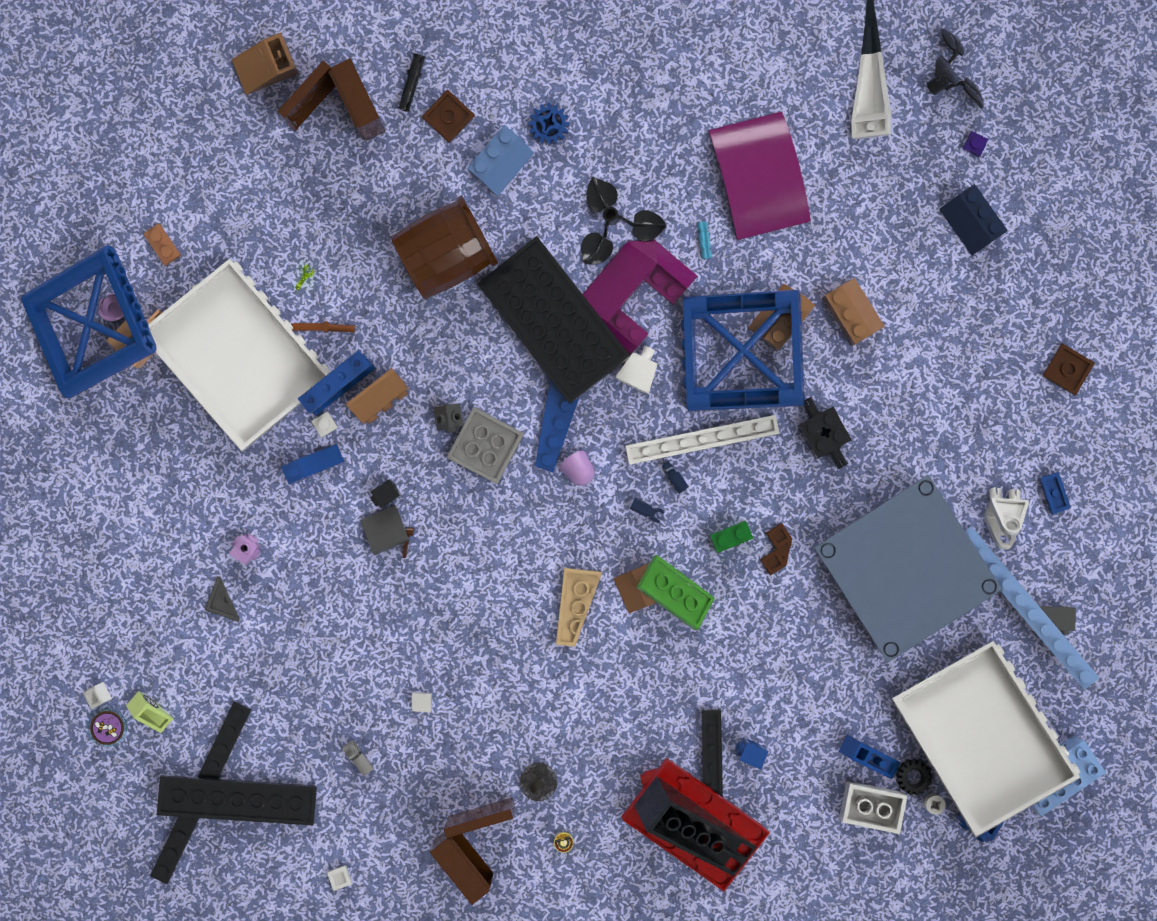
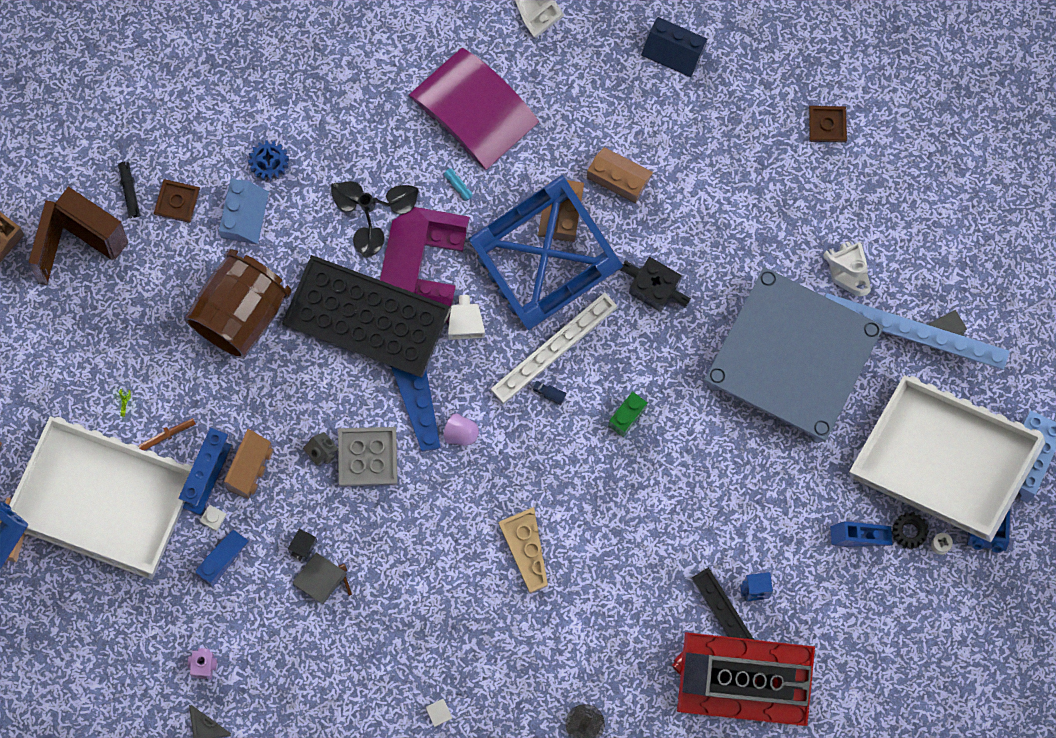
camera: 35 degrees left, 15 degrees down
(627, 584) = (574, 502): medium nougat slope -> none
(645, 509) = (541, 434): dark blue bar -> none
(675, 592) = (608, 486): bright green tile -> none
(779, 557) = (674, 396): reddish brown tile -> none
(873, 807) = (890, 574): white brick -> none
(1054, 493) = (879, 228): blue plate -> none

